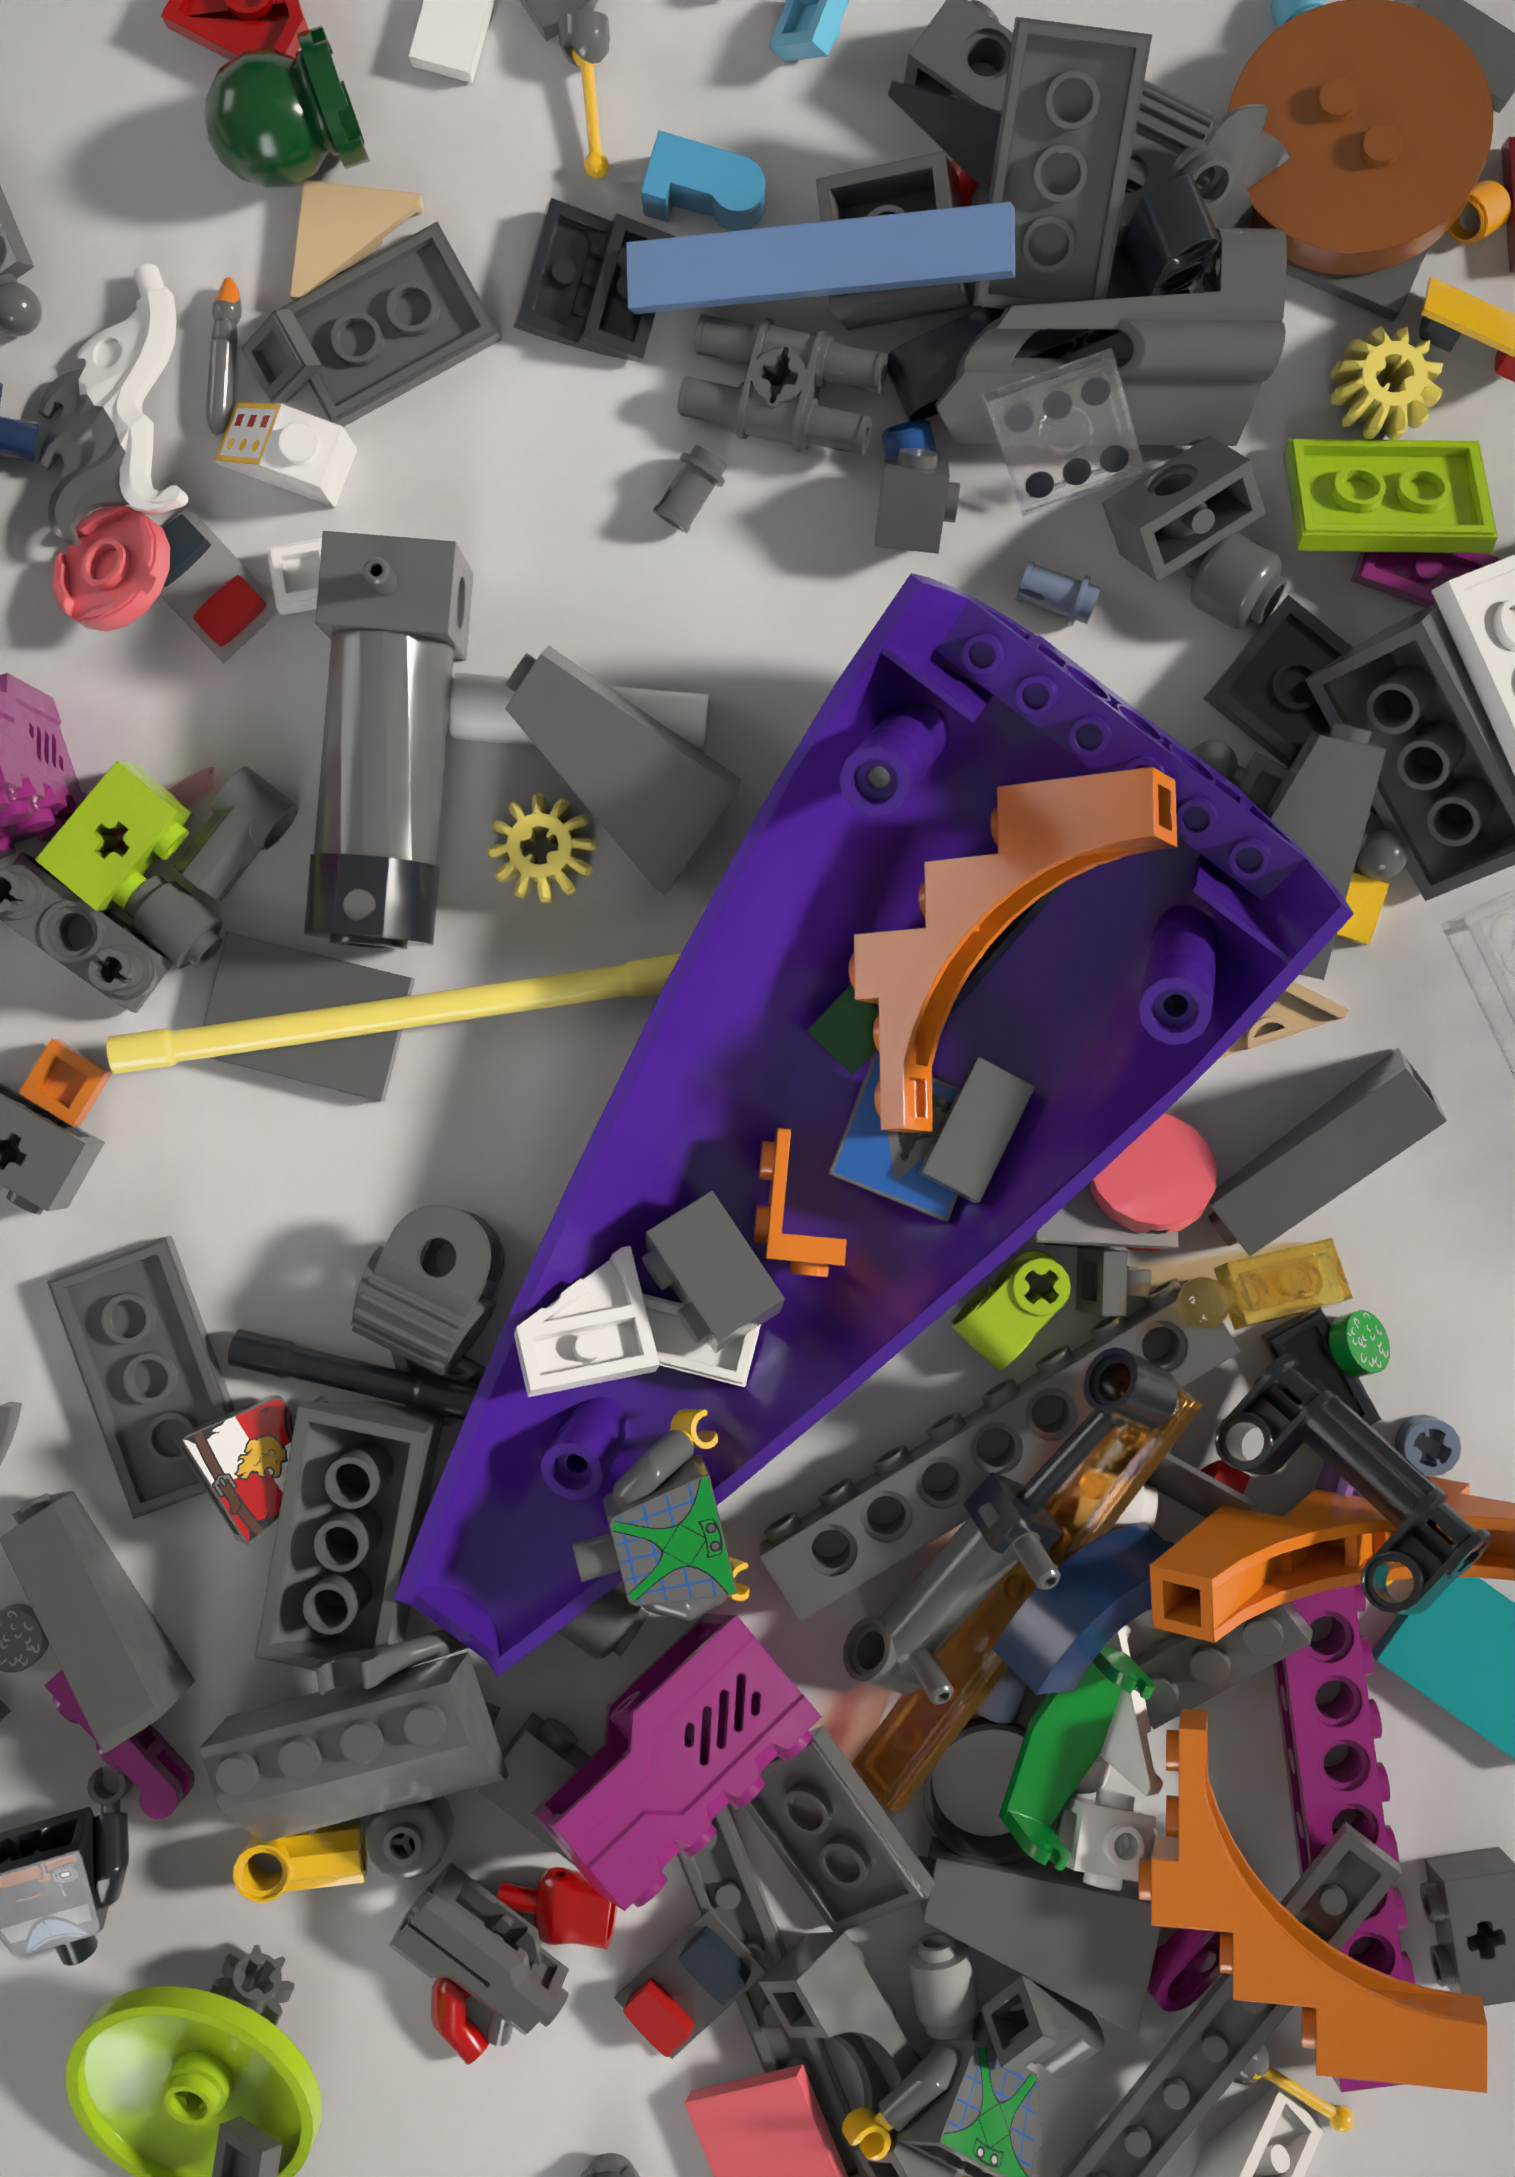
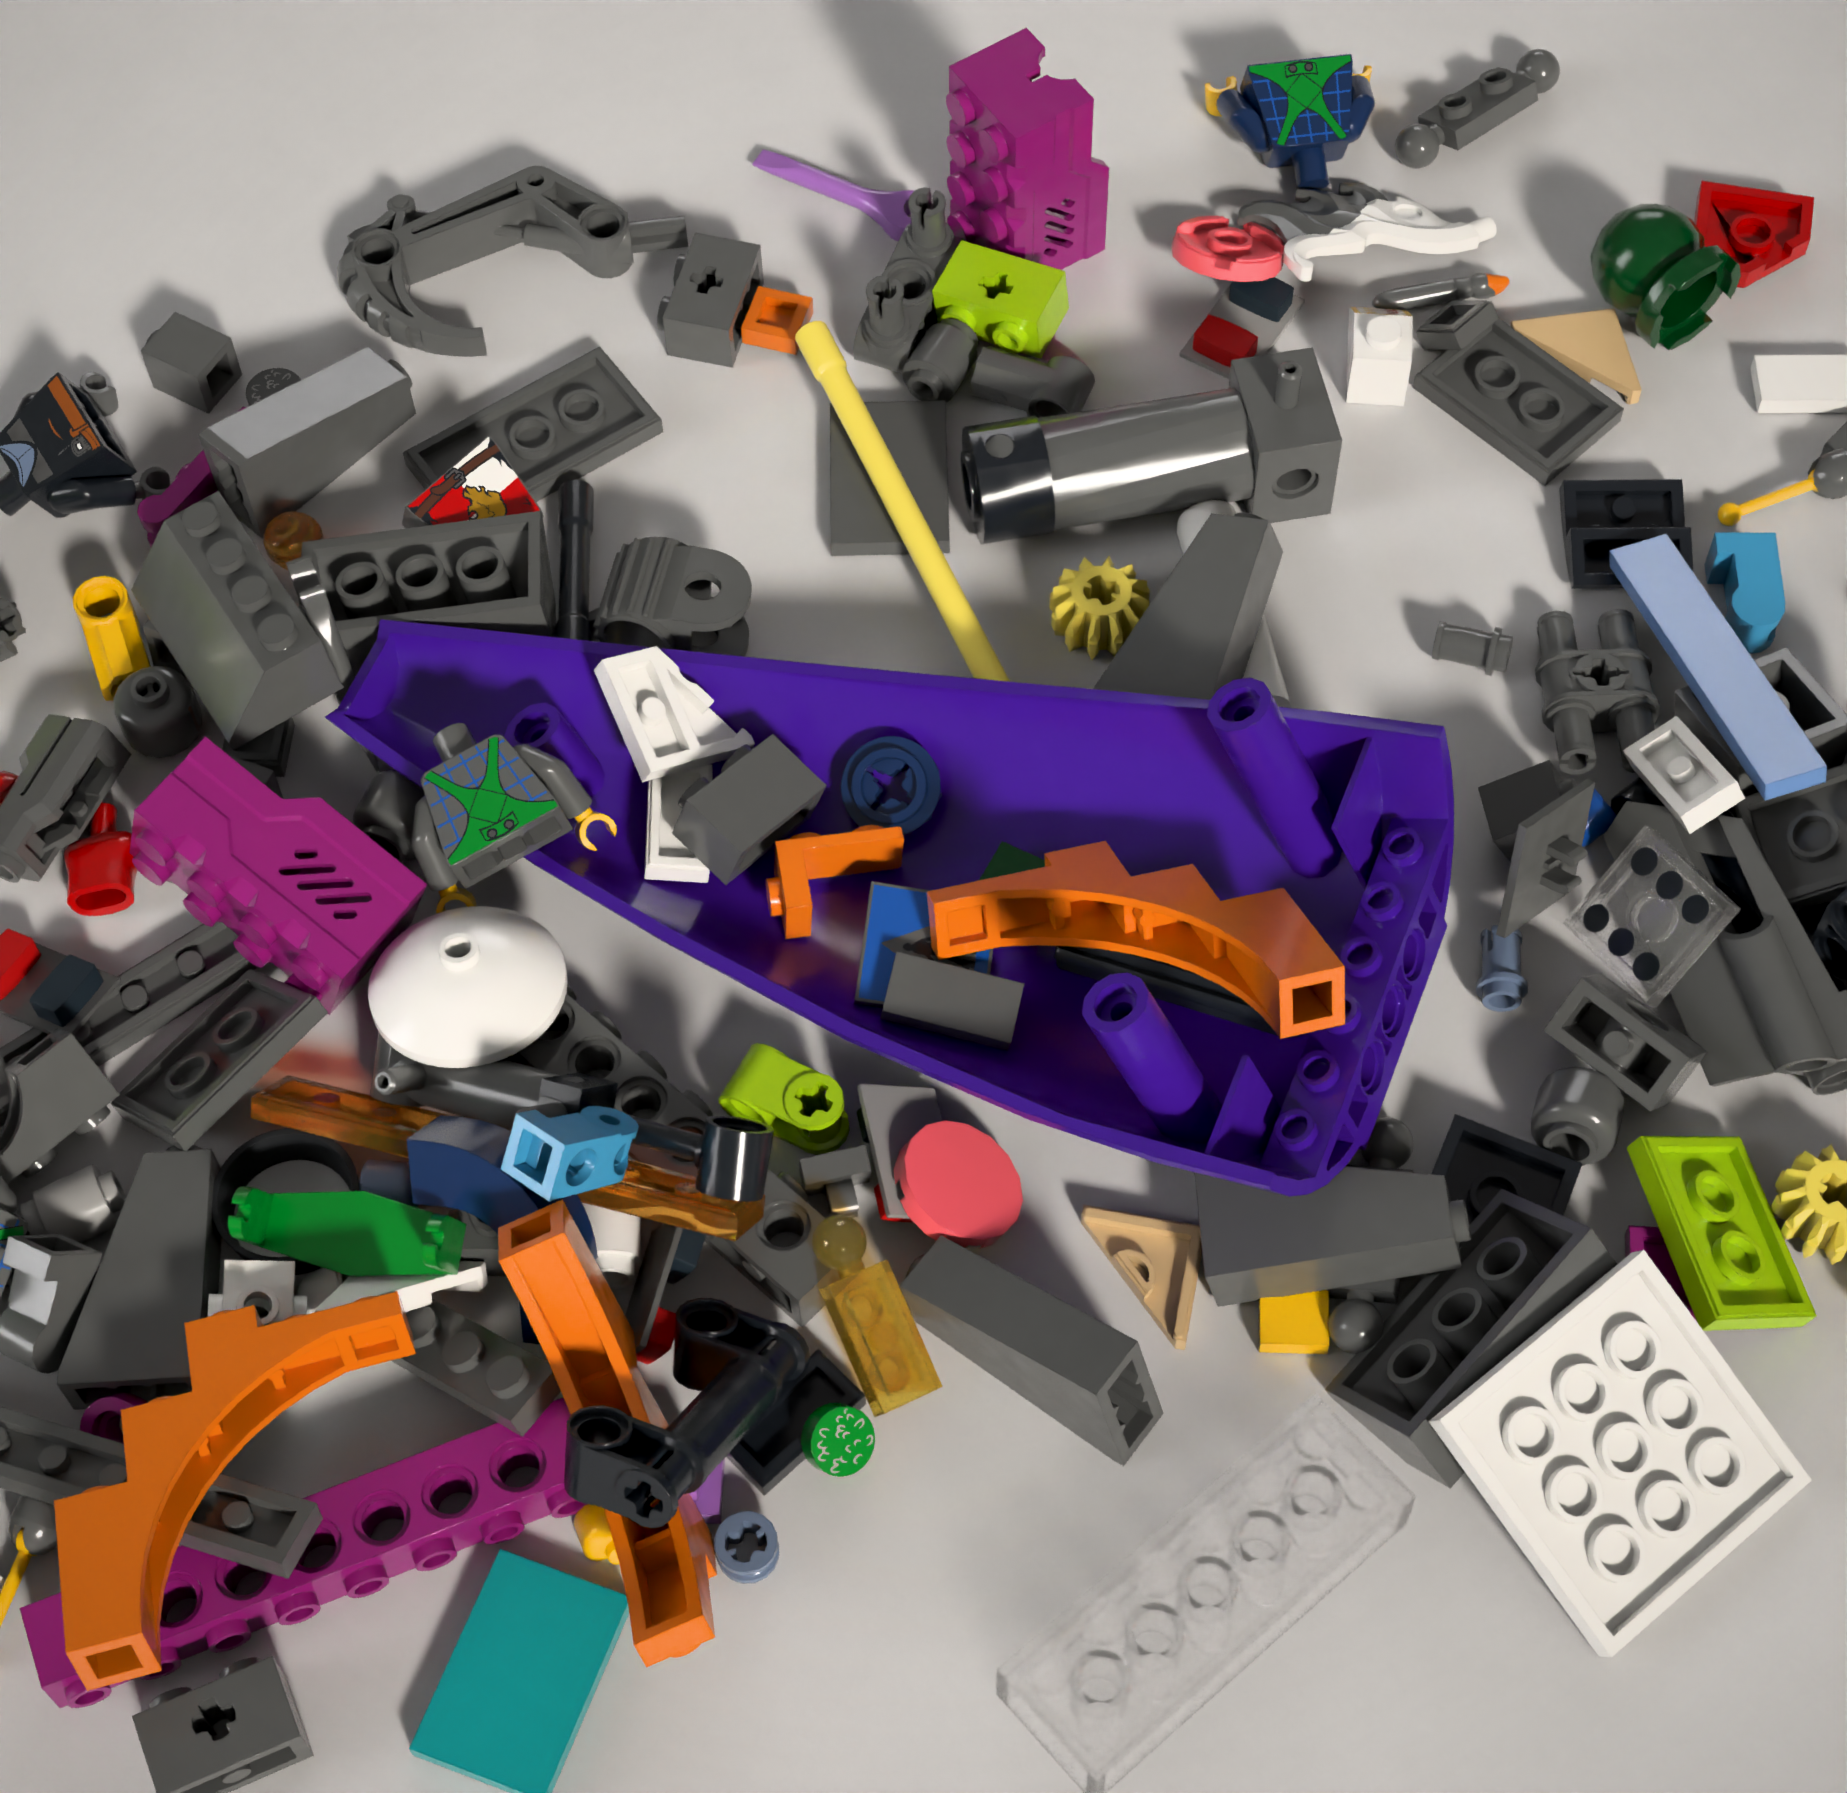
camera: 75 degrees right, 30 degrees down
(217, 1653) = (285, 536): none -> clear orange plate
(739, 1125) = (891, 756): none -> dark blue gear
(869, 1557) = (467, 987): none -> white dish
(944, 342) = (1683, 774): none -> white plate
(998, 501) = (1546, 858): none -> dark grey piece
(1098, 1540) = (569, 1151): none -> dark azure leg

